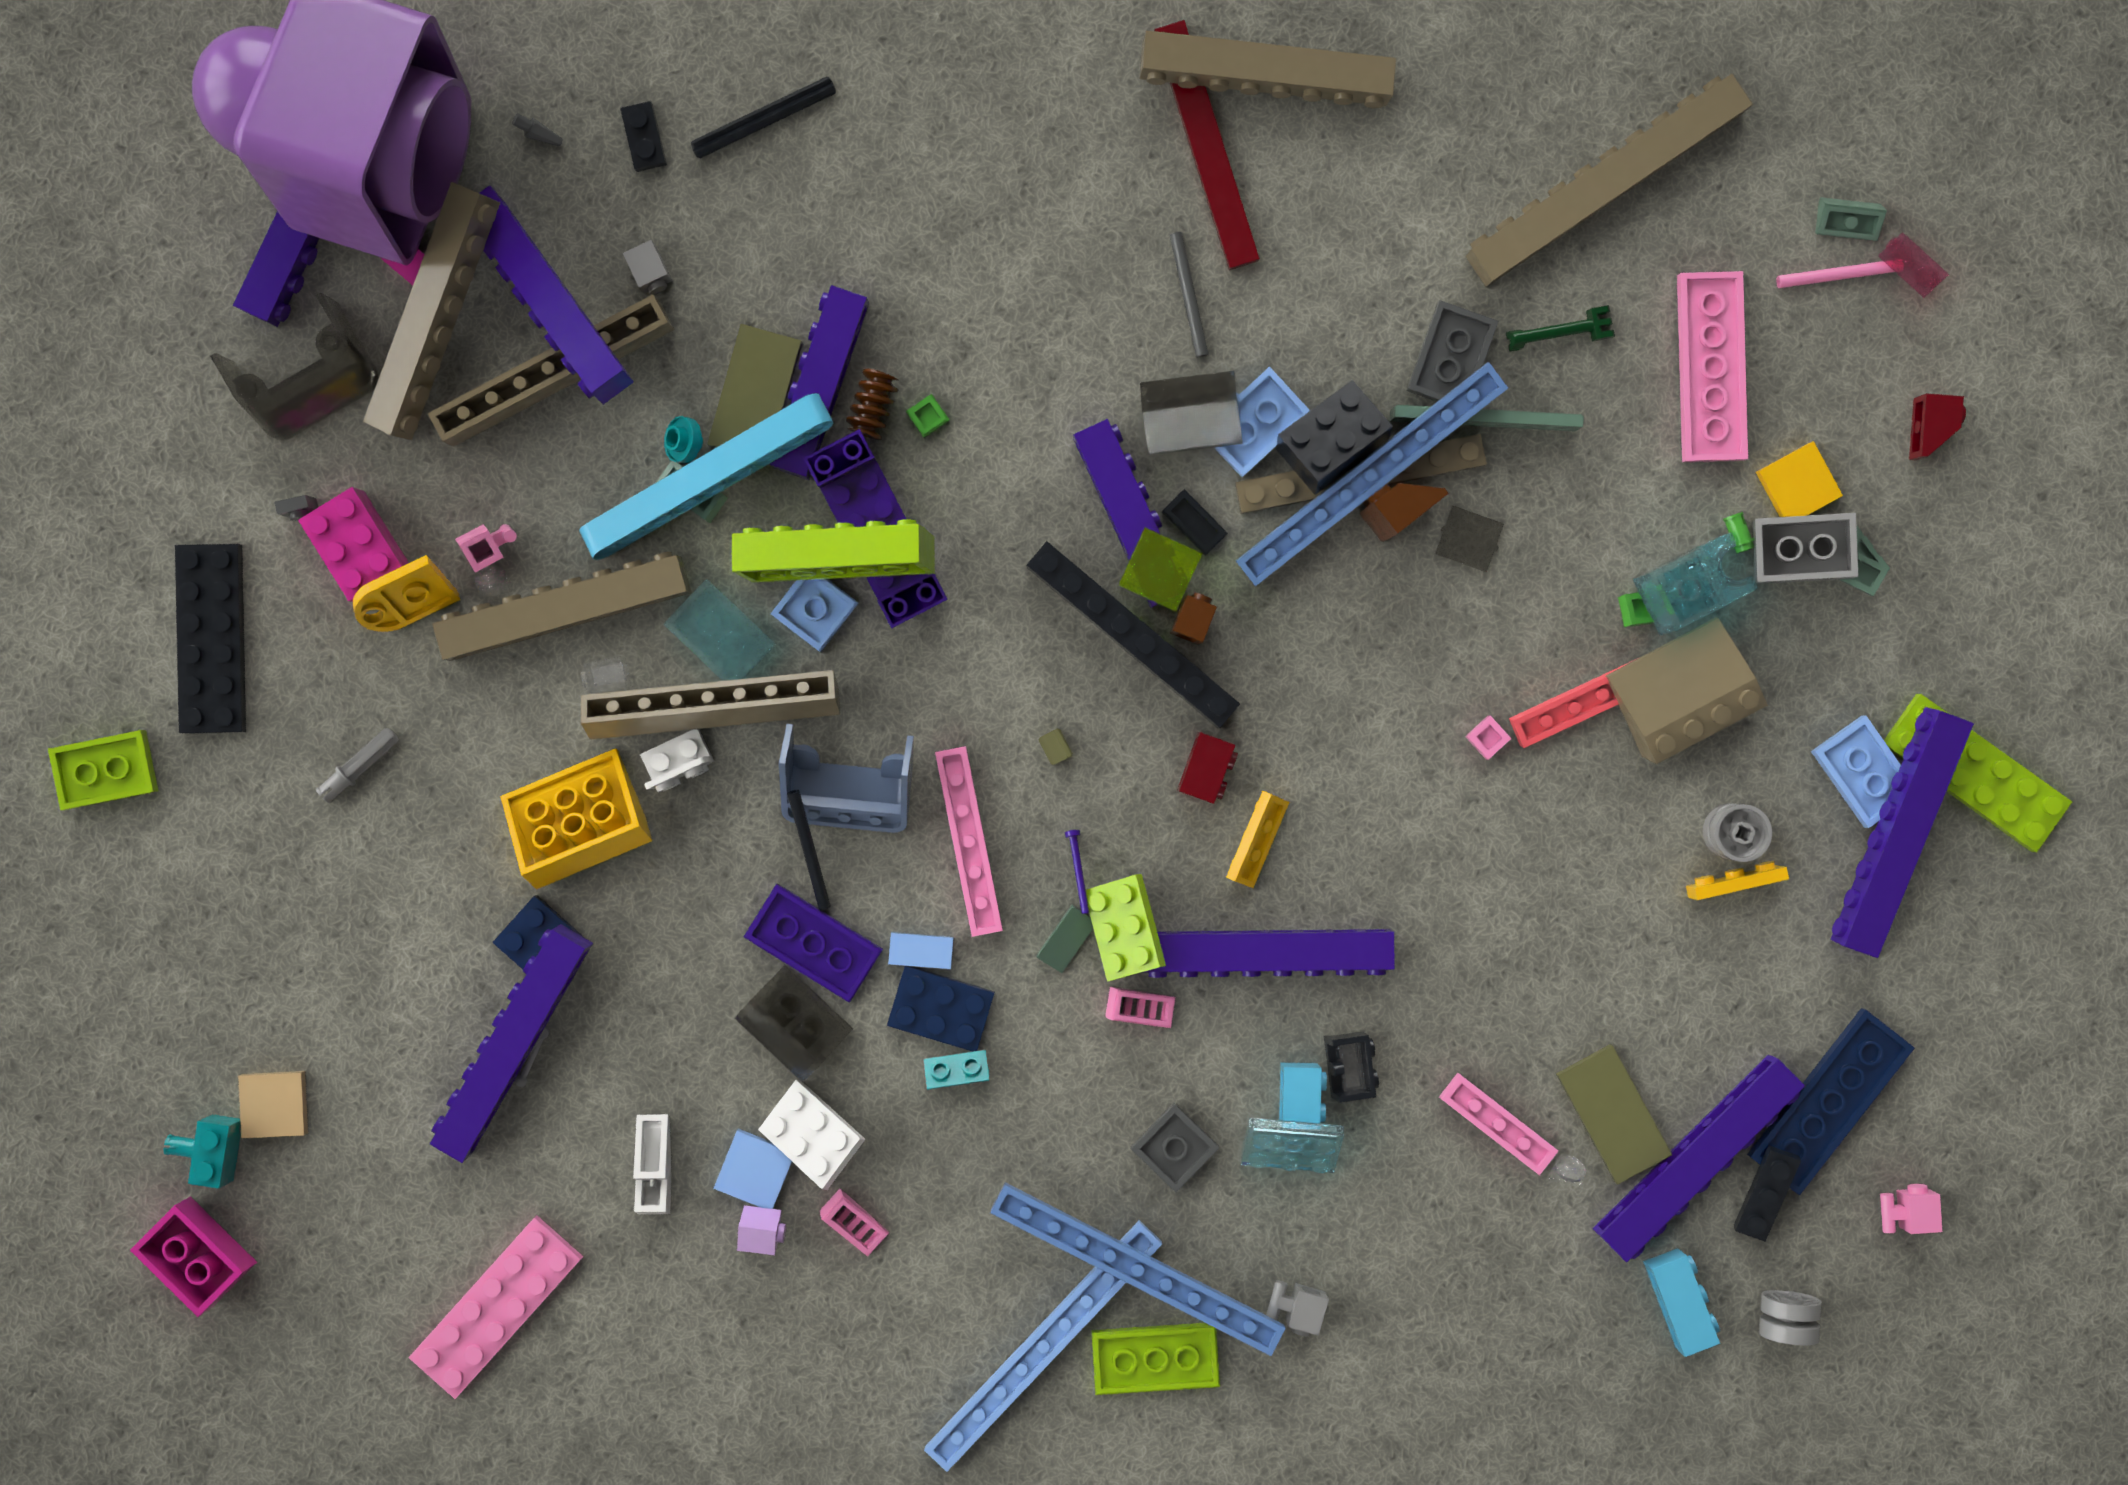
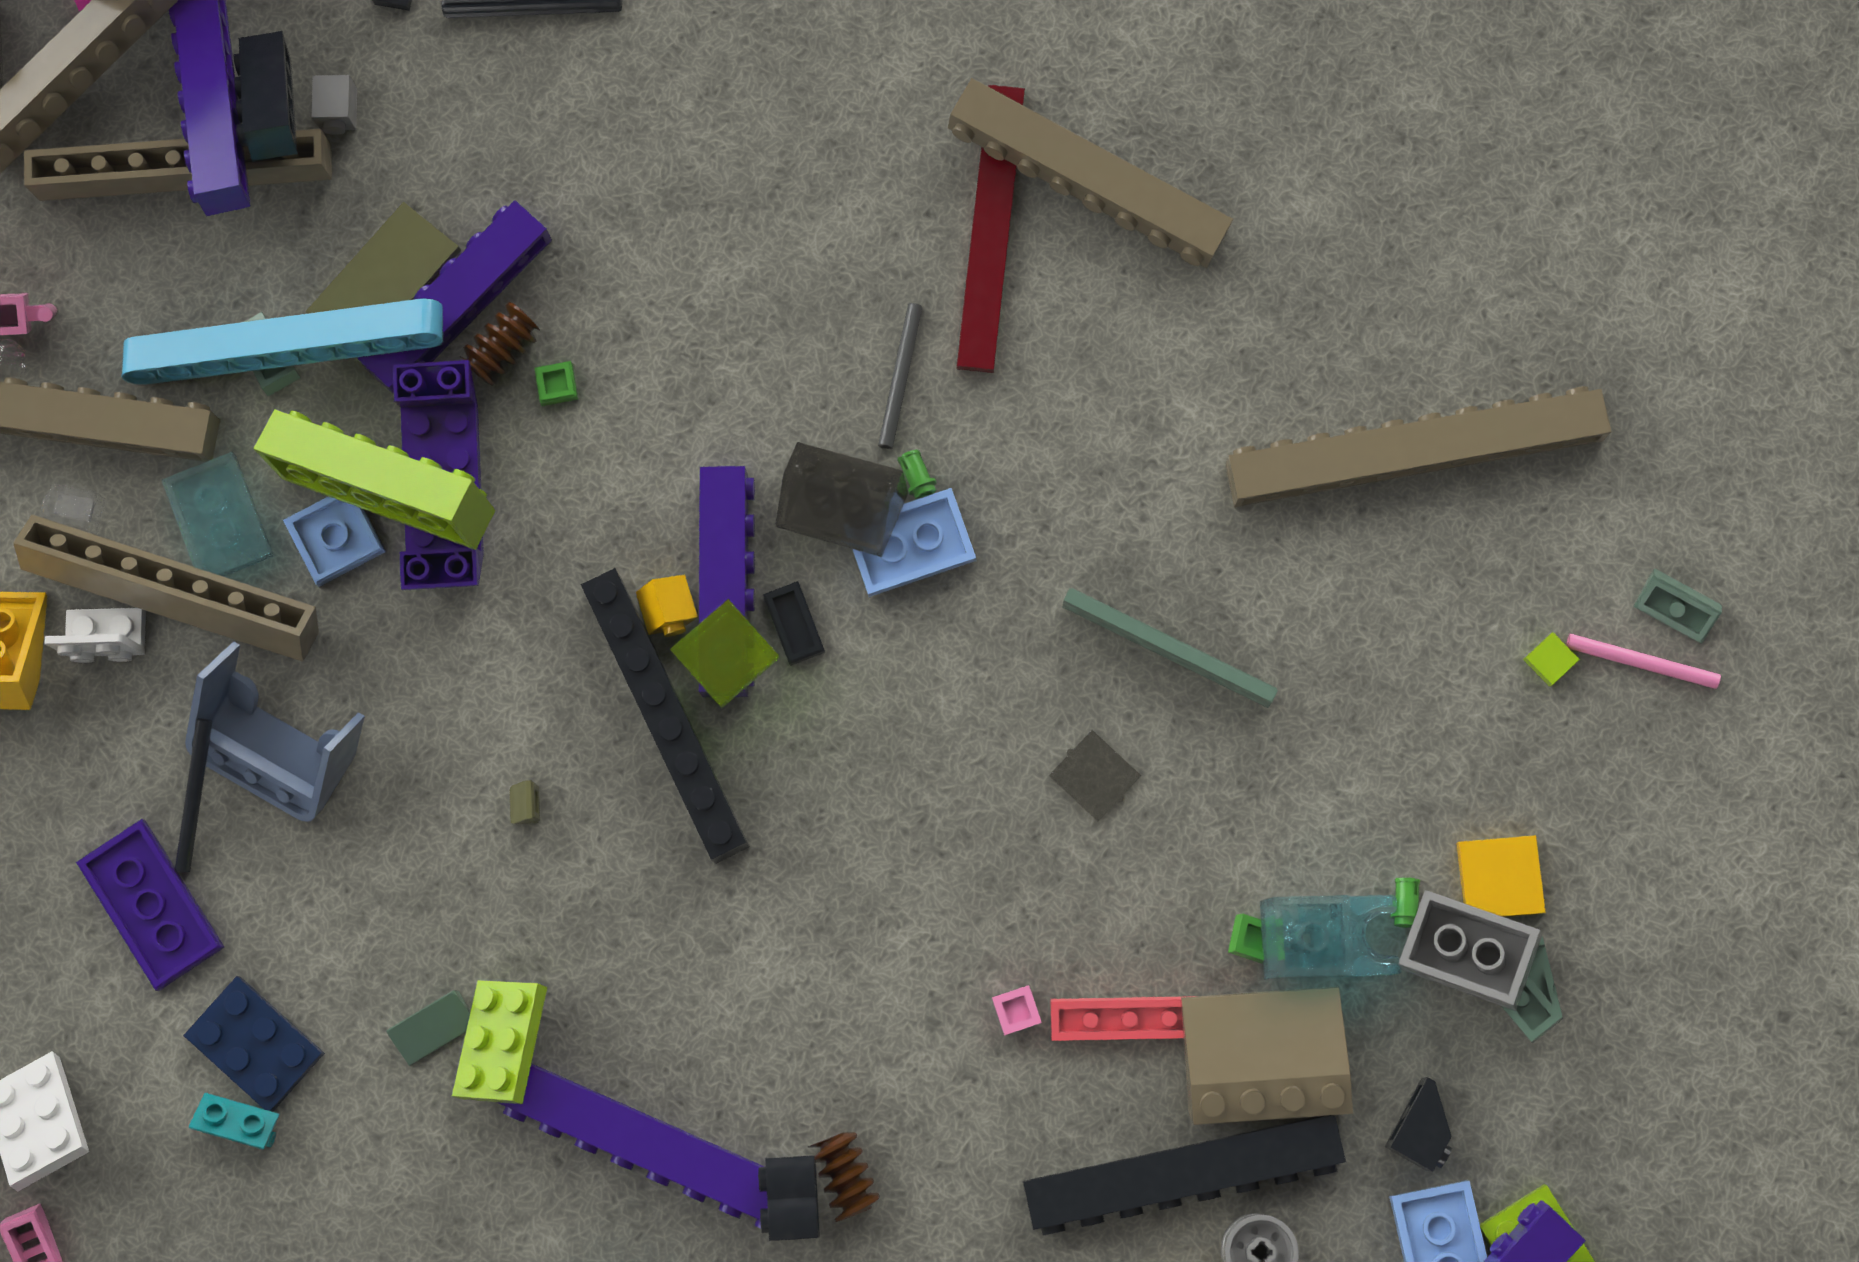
camera: 30 degrees right, 10 degrees down
(597, 284) = (265, 96): none -> black brick
(683, 439) = (281, 294): teal plate -> none
(793, 1023) = (81, 984): clear smoke slope -> none
(920, 950) = (264, 967): light blue tile -> none
(968, 841) = (376, 867): bright pink plate -> none
(1072, 835) = (495, 911): dark purple piece -> none
(1096, 551) = (667, 605): none -> yellow brick
(1114, 1004) = (457, 1150): bright pink slope -> none
(1194, 618) = (738, 724): reddish brown brick -> none
(1207, 768) = (680, 902): dark red brick -> none
(1233, 362) = (916, 474): none -> bright green pin
(1257, 839) = (699, 1010): yellow plate -> none
(1289, 488) = (1003, 650): dark tan plate -> none
(1333, 437) = (985, 593): black brick -> none
(1372, 473) = (1008, 651): medium blue plate -> none
(1392, 945) = (790, 1198): none -> black brick
(1397, 507) = (1022, 699): reddish brown slope -> none
(1417, 909) = (845, 1175): none -> reddish brown piece
(1451, 350) = (1161, 563): dark grey plate -> none
(1593, 324) = (1337, 598): dark green hinge -> none
(1658, 801) = (1184, 1172): none -> black brick
(1712, 366) = (1452, 702): bright pink plate -> none
(1771, 301) = (1551, 659): none -> lime tile
(1817, 692) = (1422, 1129): none -> black slope
(1912, 264) = (1728, 685): clear pink hinge -> none
(1934, 422) = (1686, 873): dark red slope -> none

